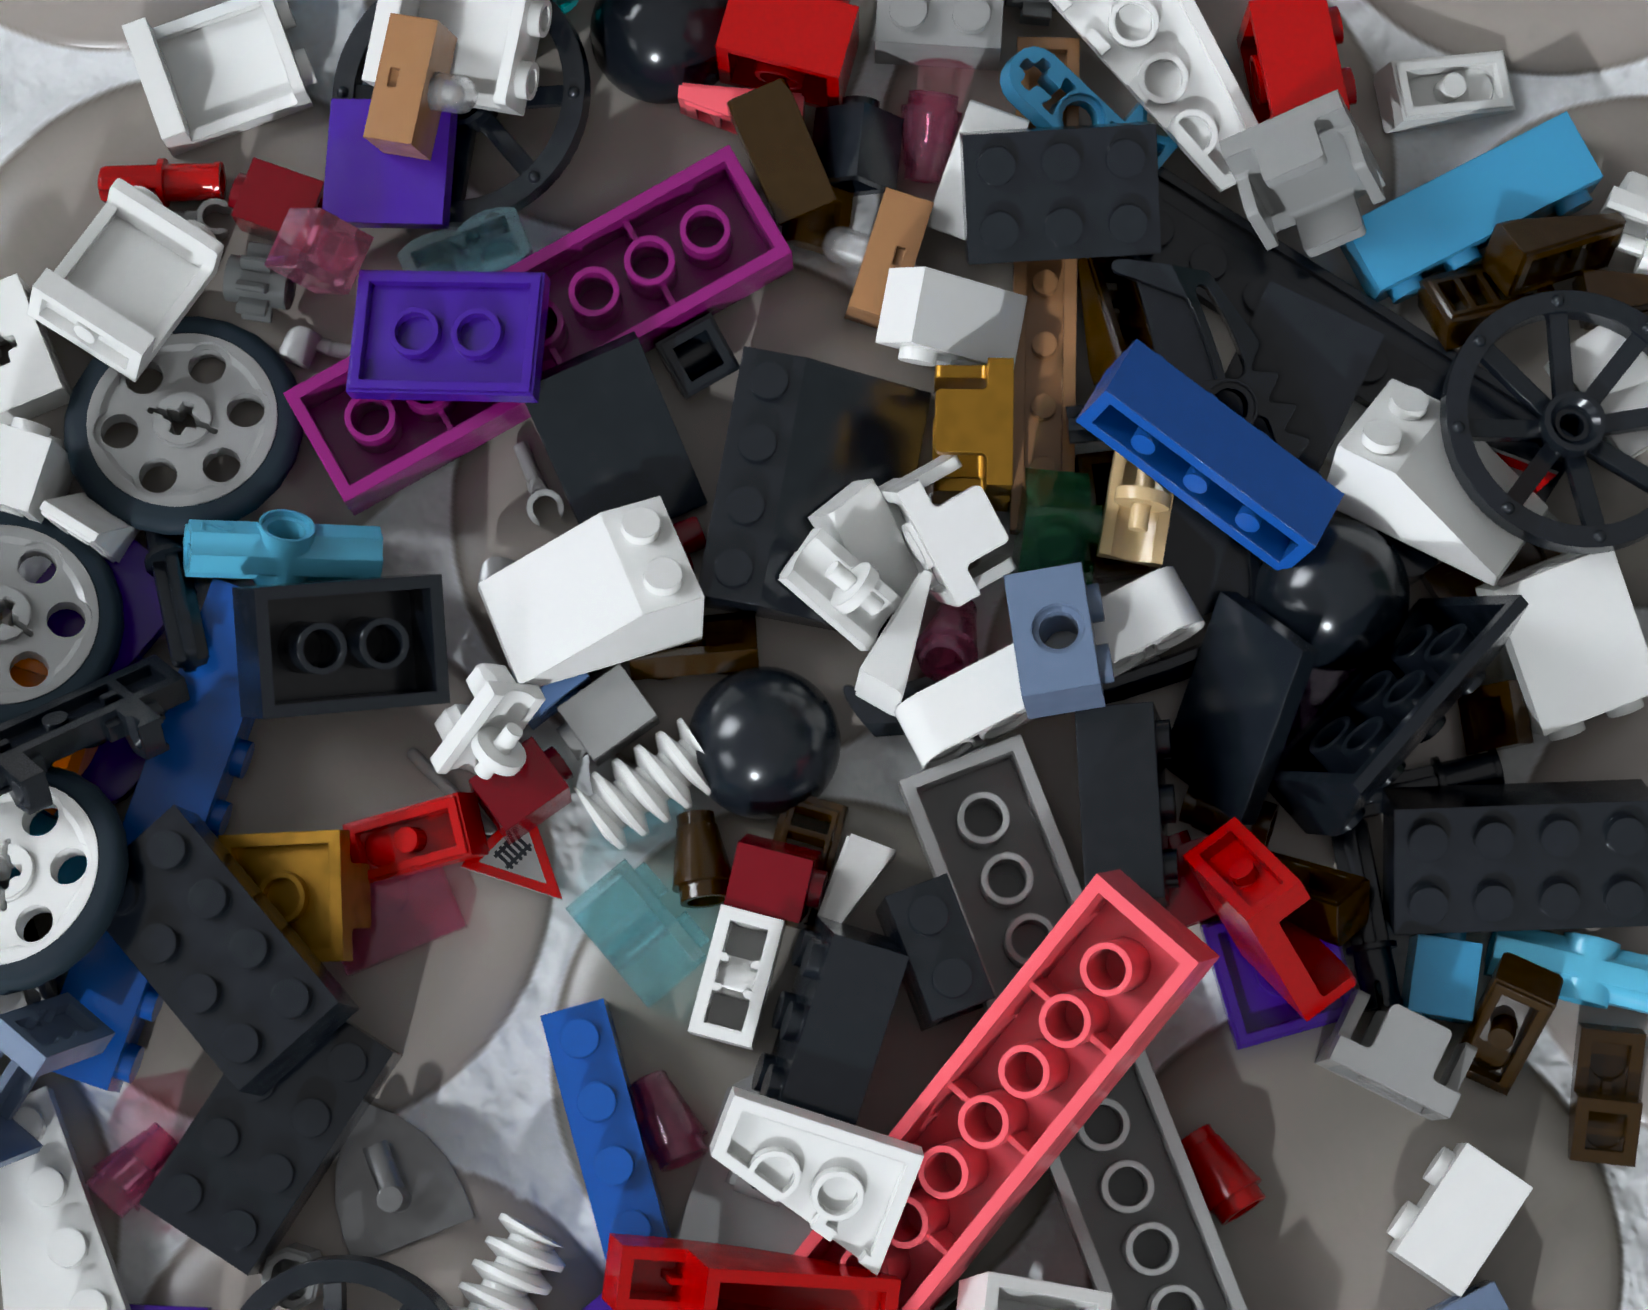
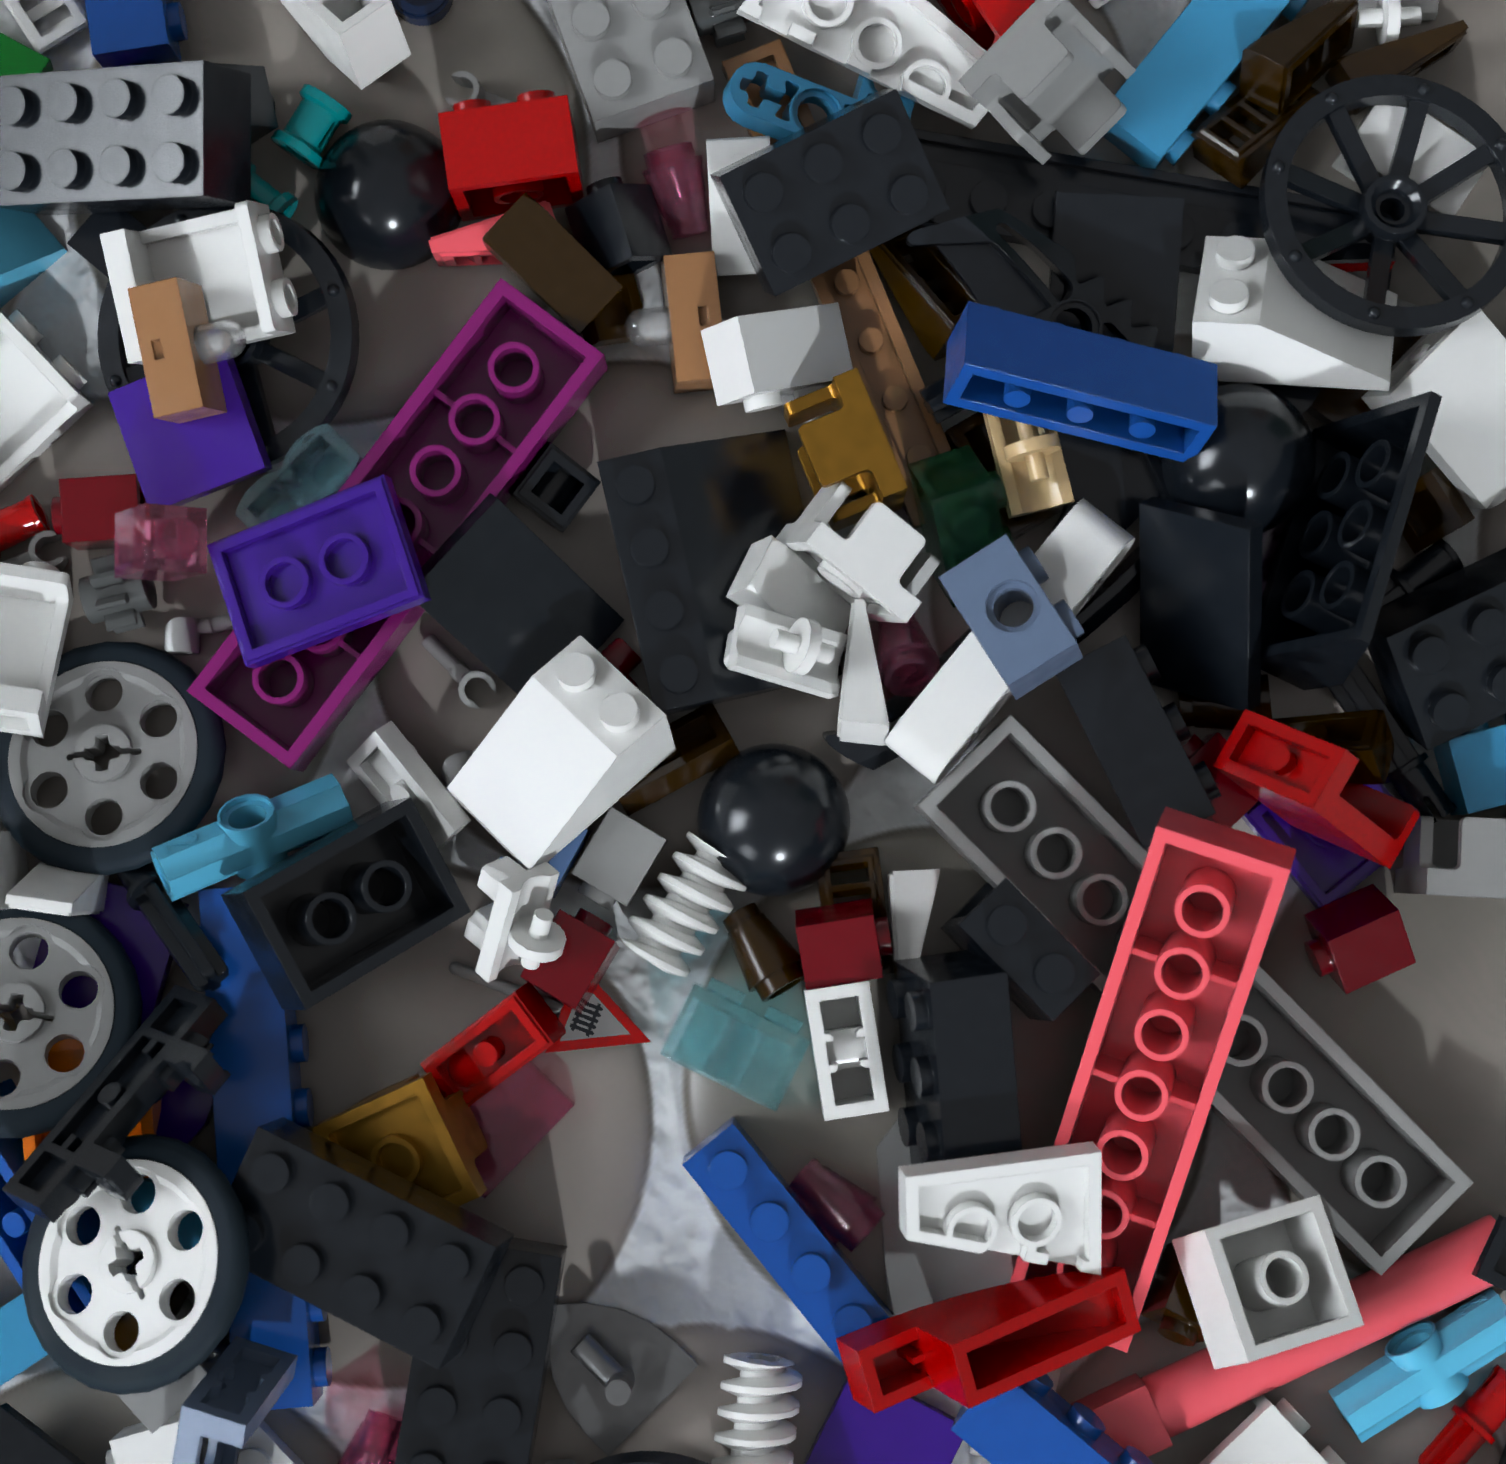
camera: 30 degrees left, 5 degrees up
(438, 545) = (396, 771): none -> white plate
(1222, 1176) = (1360, 1033): red cone -> none
(1256, 1085) = (1358, 939): none -> dark red brick

